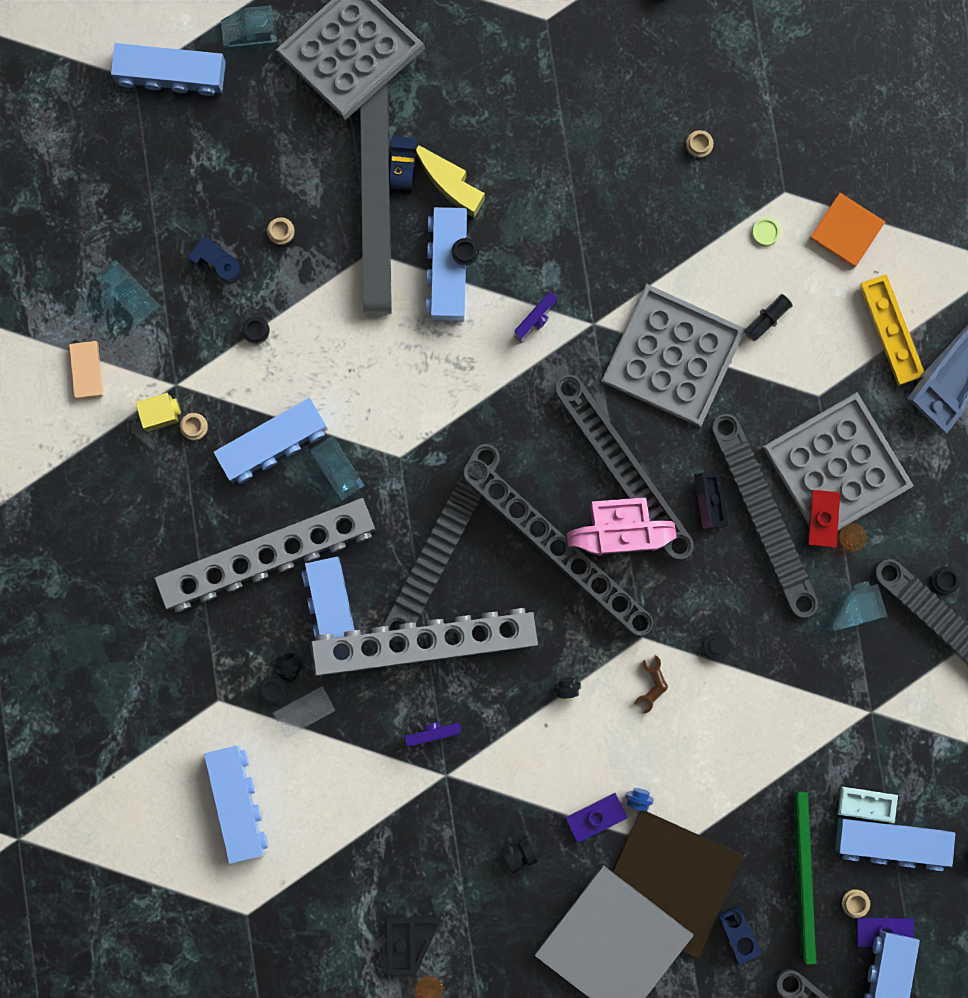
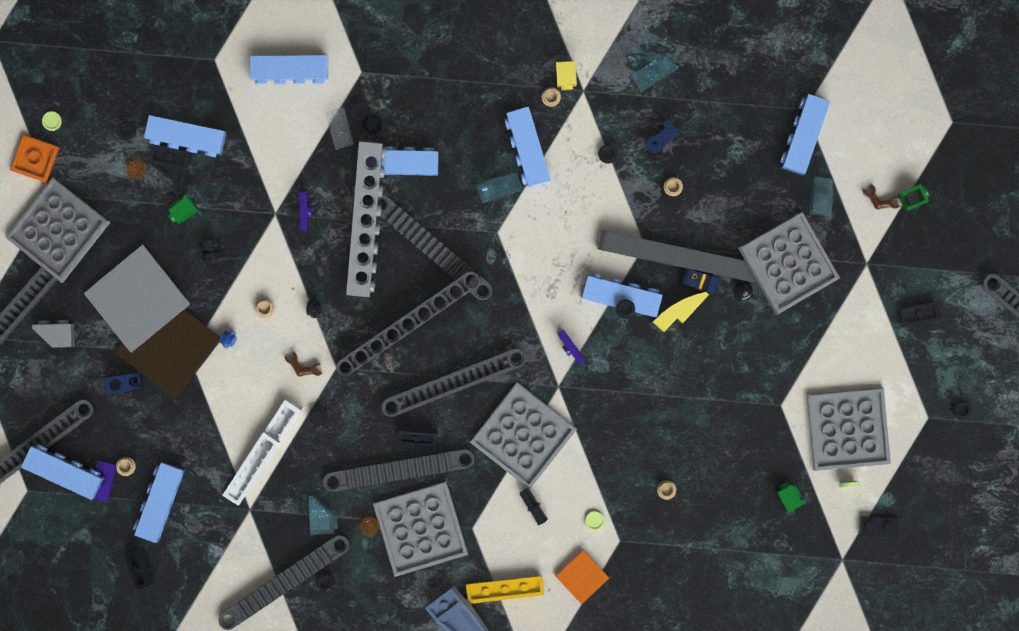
camera: 100 degrees right, 5 degrees up
(86, 370) = (607, 32): light nougat tile -> none
(172, 583) = (446, 58): light grey brick -> none
(364, 931) = (185, 135): none -> light blue brick
(403, 103) = (743, 291): none -> black plate
(472, 910) = (182, 210): none -> green window
(583, 757) = (265, 308): none -> tan plate
(596, 817) = (223, 307): dark purple plate -> none
(621, 528) = (410, 369): bright pink plate -> none
(785, 712) = (262, 451): none -> white slope
(804, 877) = (153, 436): green tile -> none
(823, 518) = (386, 509): red plate -> none
(867, 804) = (188, 490): light aqua plate -> none

